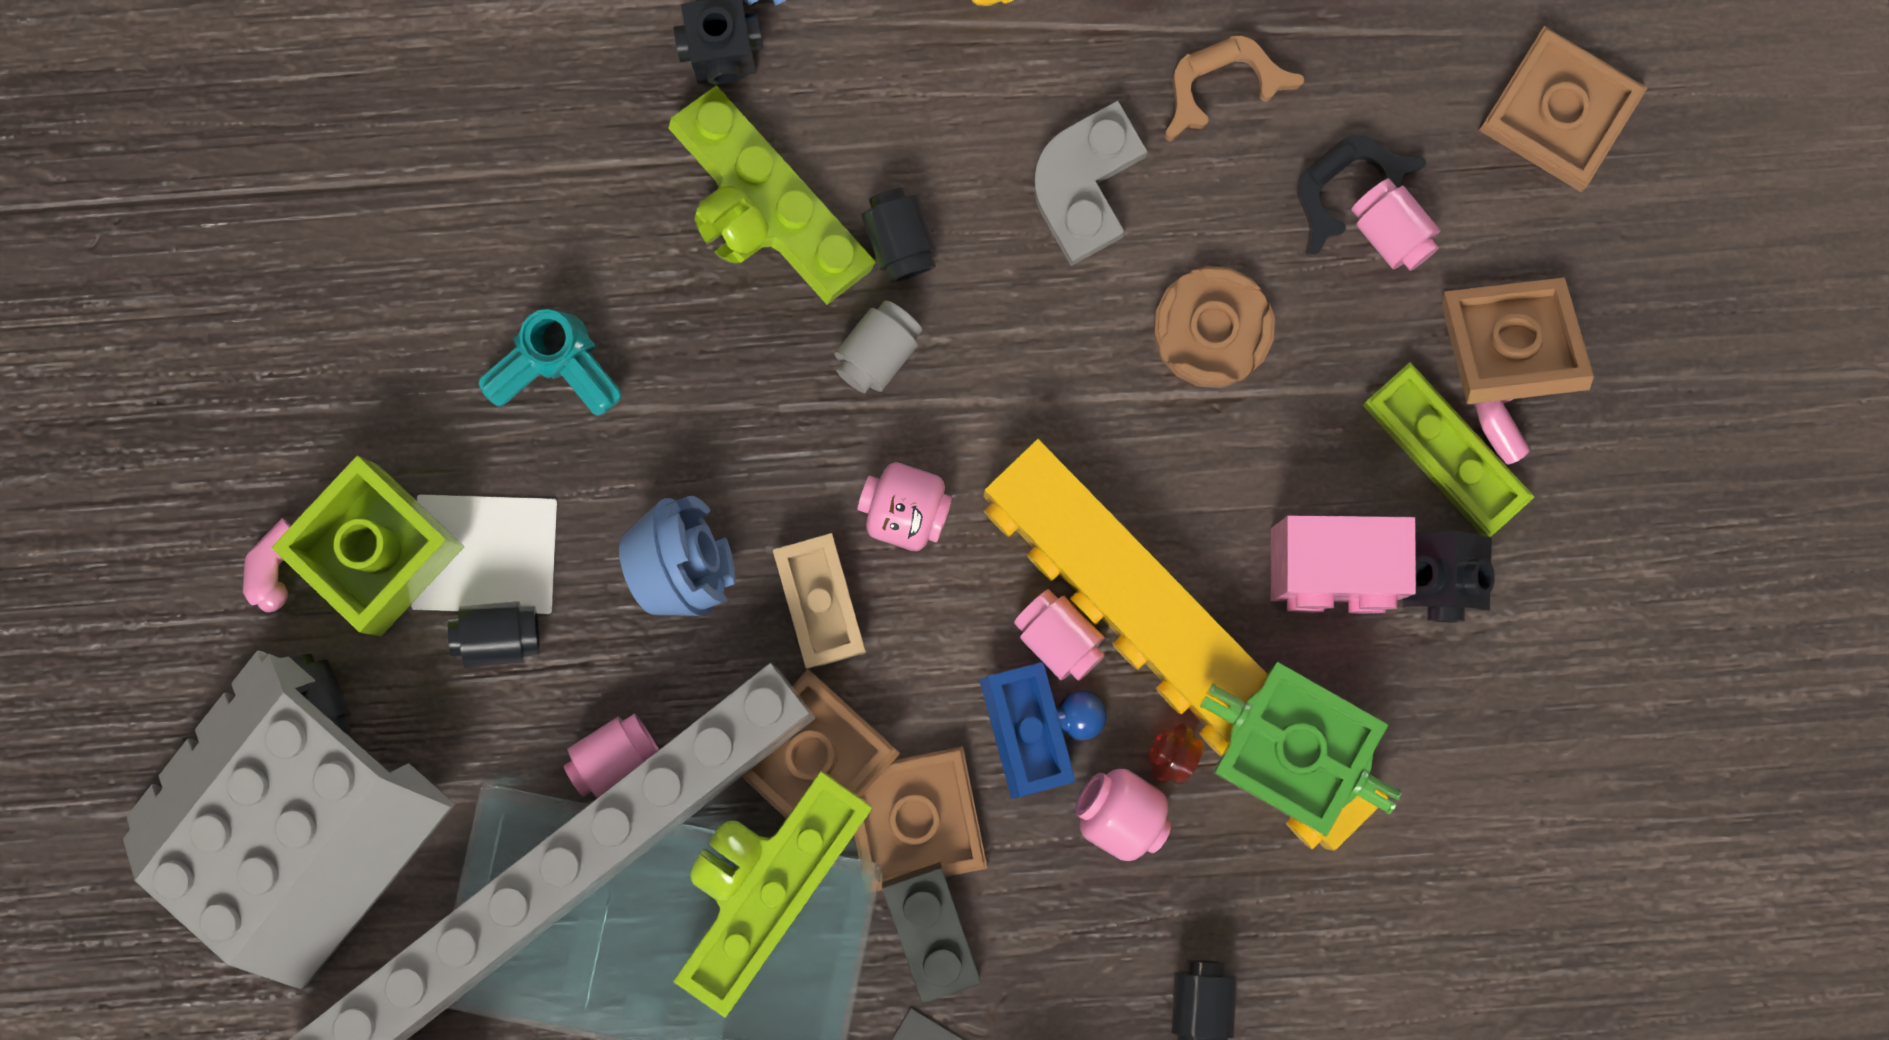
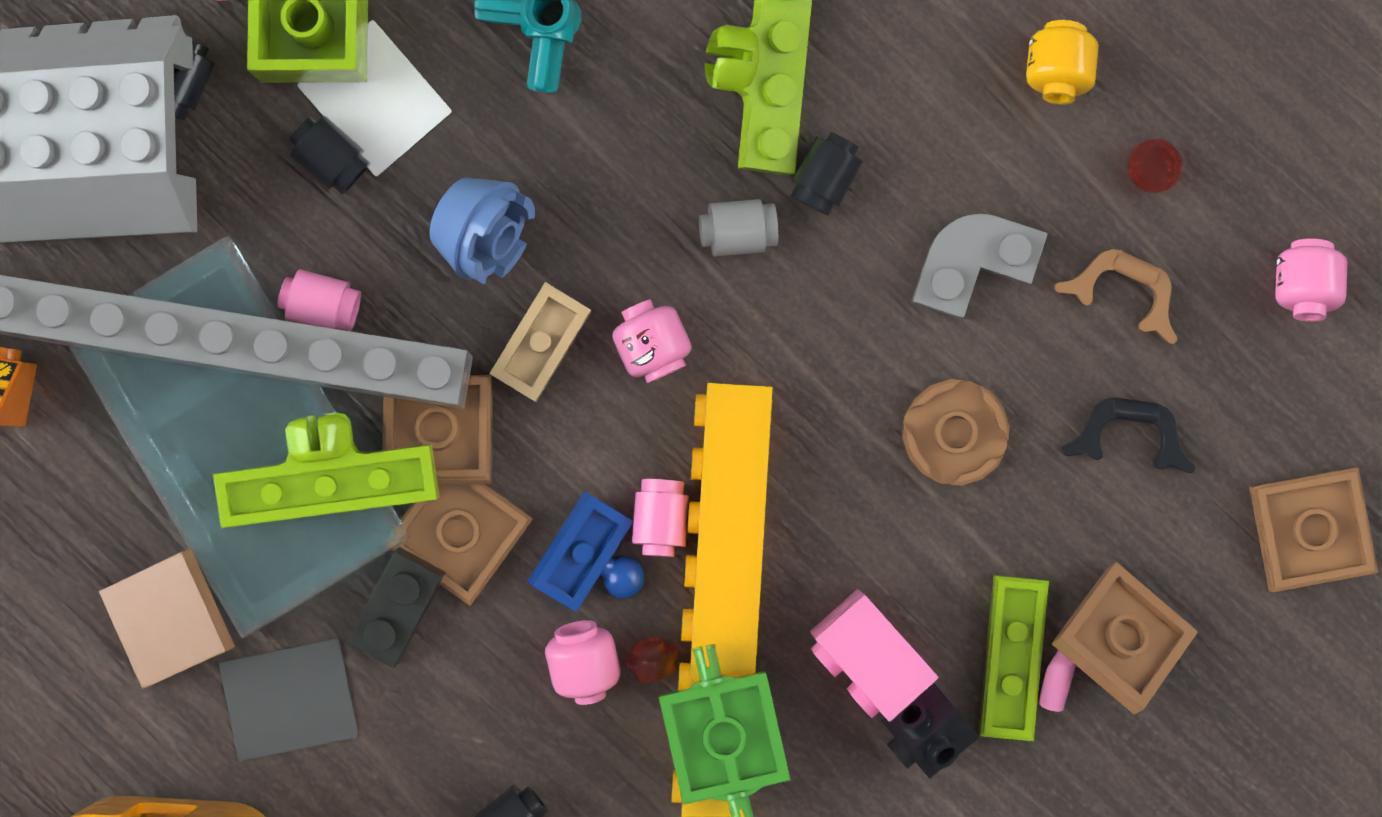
camera: 45 degrees right, 5 degrees up
(1396, 225) = (1131, 491): bright pink brick -> none

